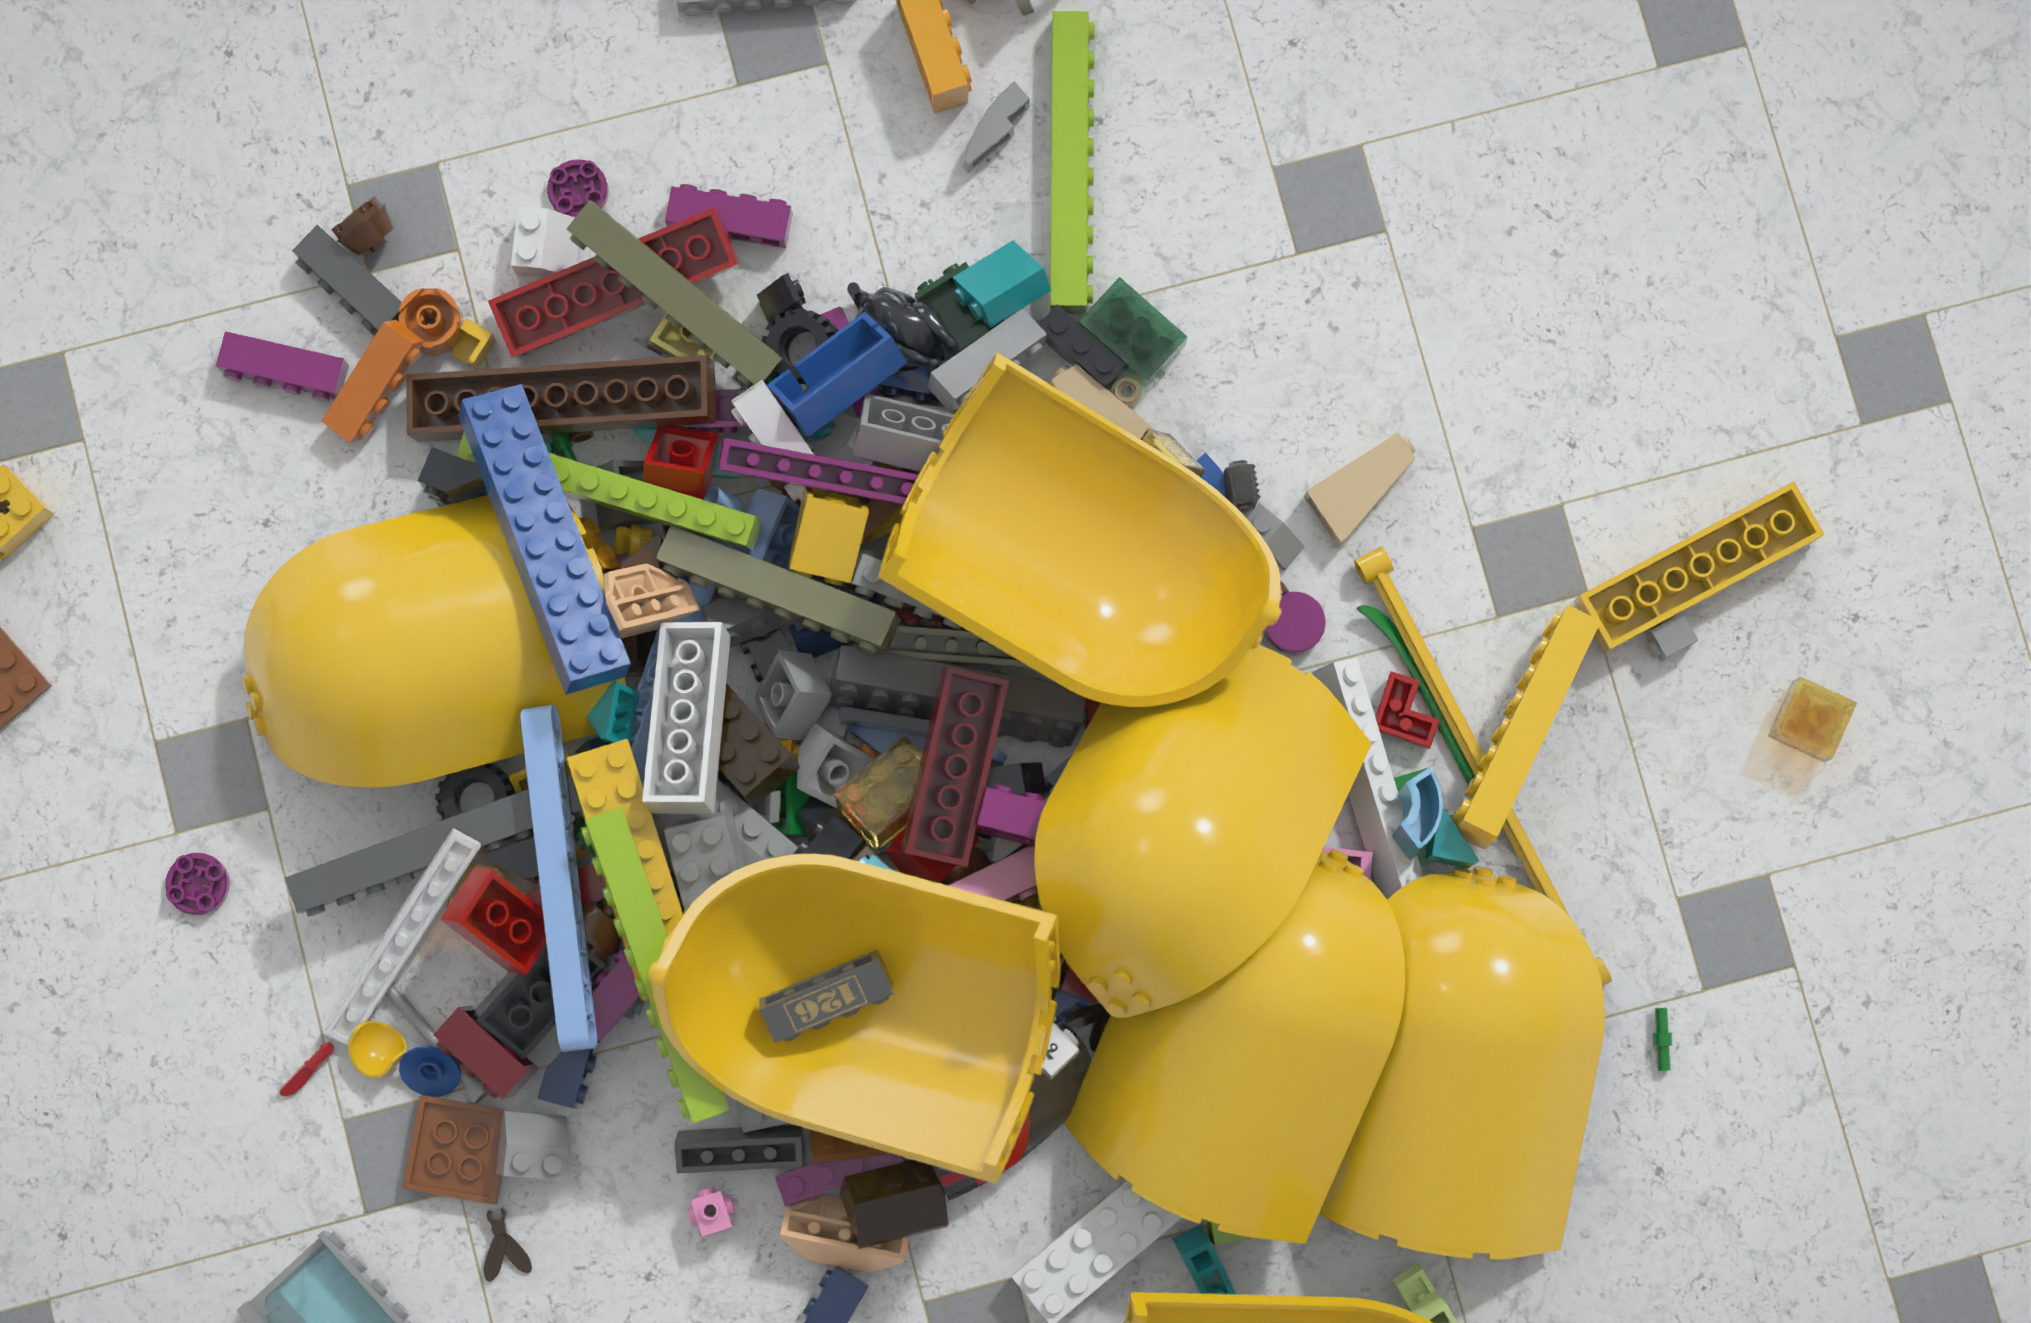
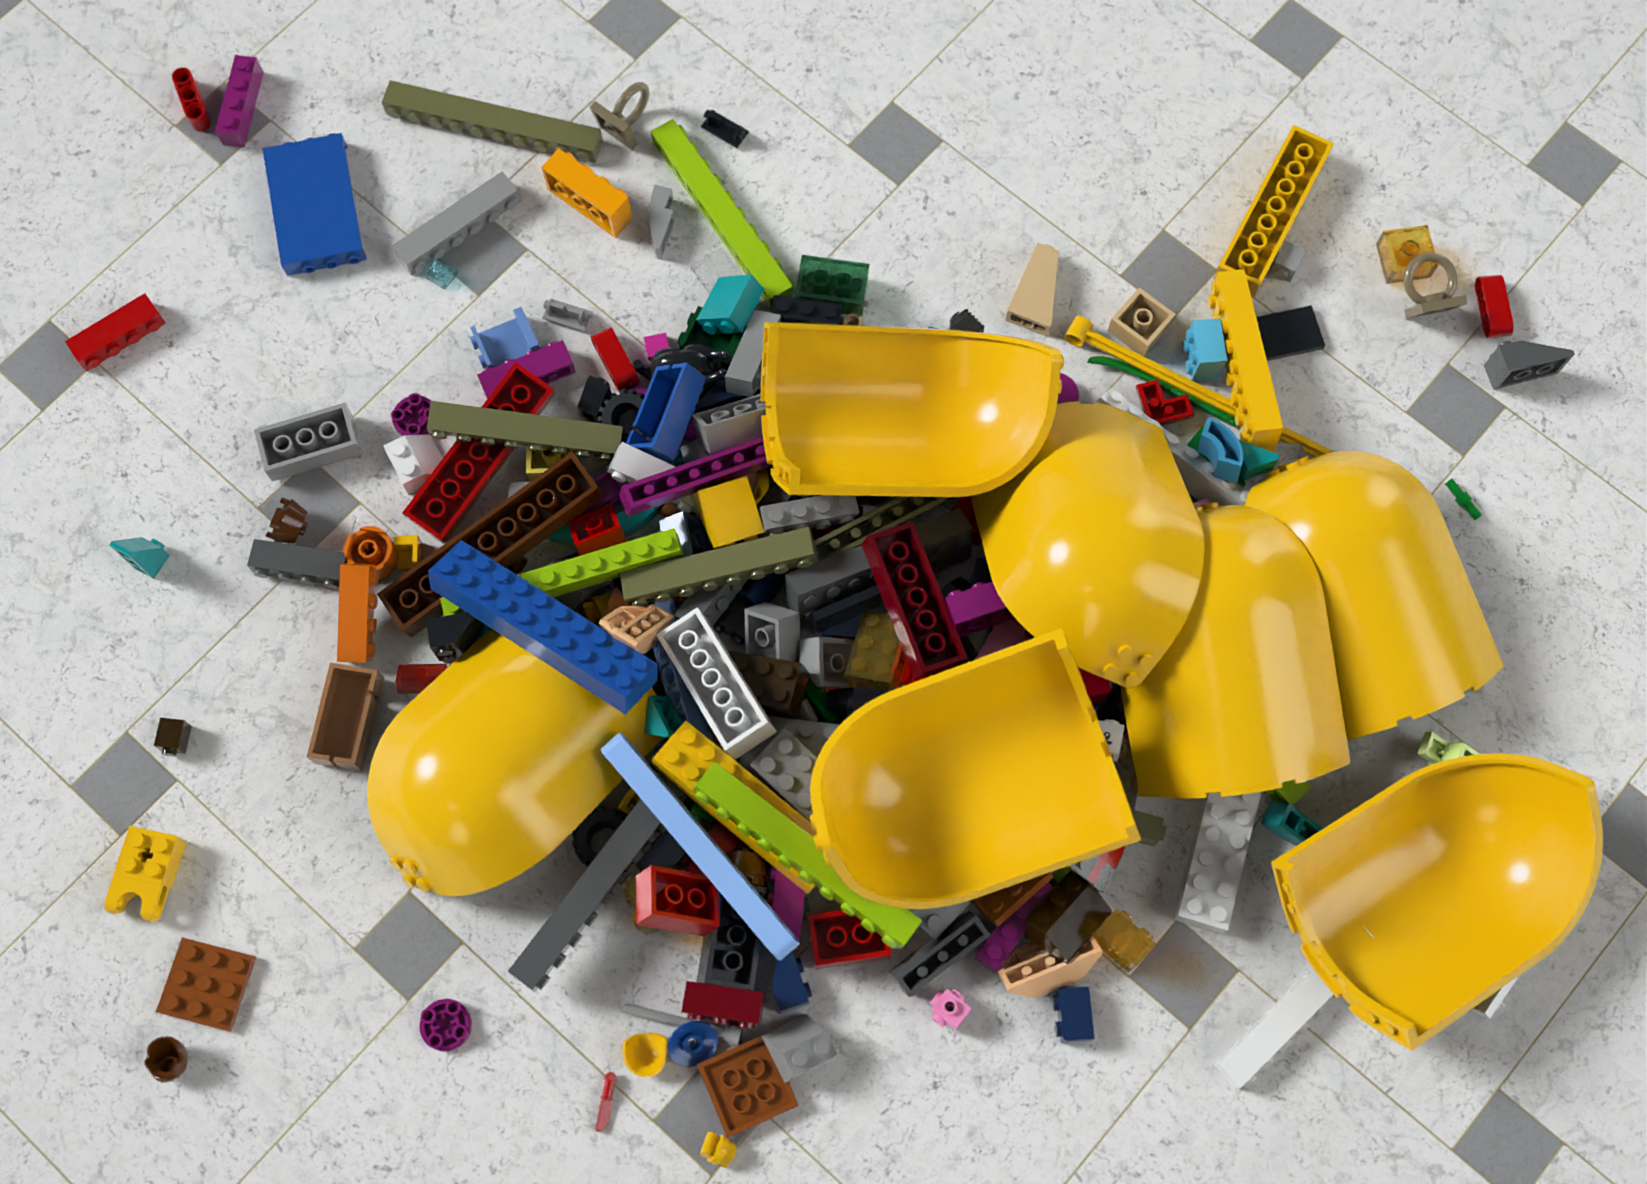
camera: 30 degrees left, 10 degrees down
(104, 391) = (172, 736): none -> dark brown brick
(190, 165) = (142, 554): none -> teal slope
(282, 366) = (286, 645): magenta brick -> none
(293, 489) = (345, 716): none -> medium nougat piece
(386, 1194) = (718, 1149): none -> yellow piece
(398, 492) = (416, 677): none -> clear red slope
(402, 935) = (614, 961): white tile -> none
(442, 147) = (308, 442): none -> light grey brick
(502, 1245) = (821, 1131): dark brown piece -> none
(641, 1068) = (844, 941): none -> red brick
(712, 33) = (441, 273): none -> clear light blue tile
(729, 163) = (505, 341): none -> medium blue panel
(819, 173) = (567, 314): none -> light grey hinge
(826, 997) = (935, 801): dark grey brick -> none
(836, 262) = (615, 359): none -> red beam
(893, 275) = (655, 343): none -> dark pink tile
(937, 1263) = (1124, 940): none -> clear yellow brick
(1048, 1164) = (1149, 828): none -> olive brick
(1143, 57) = (724, 128): none -> black hinge
(1448, 602) = (1141, 322): none -> tan brick
(1495, 683) = (1205, 350): none -> medium azure brick
(1606, 719) = (1290, 333): none -> black tile
(1800, 799) = (1434, 302): none -> dark tan tile
(1844, 931) = (1524, 362): none -> dark grey slope
(1869, 844) = (1494, 306): none -> red beam

